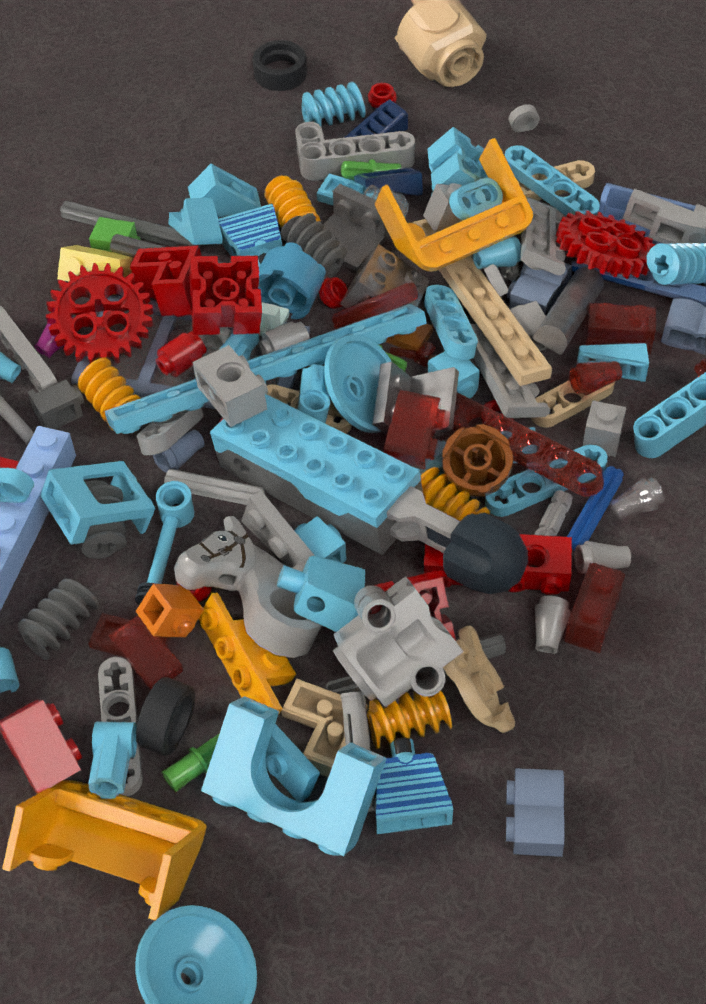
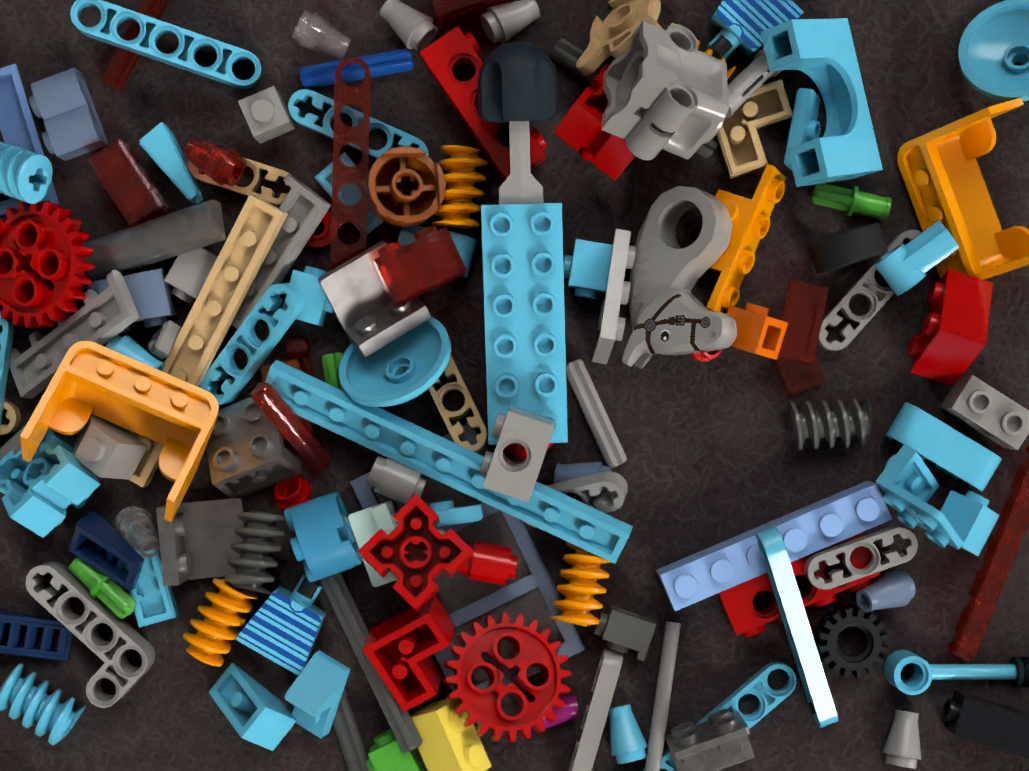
camera: 130 degrees left, 35 degrees up
(77, 508) = (730, 497): medium azure window -> none
(106, 538) = (710, 473): dark grey piece -> none
(172, 518) = (742, 370): medium azure piece -> none
(313, 393) = (447, 393): medium azure piece -> none
(324, 591) = (645, 203): medium azure torso -> none
(475, 198) = (94, 417): medium azure plate -> none
(555, 514) = (402, 94): light grey axle -> none

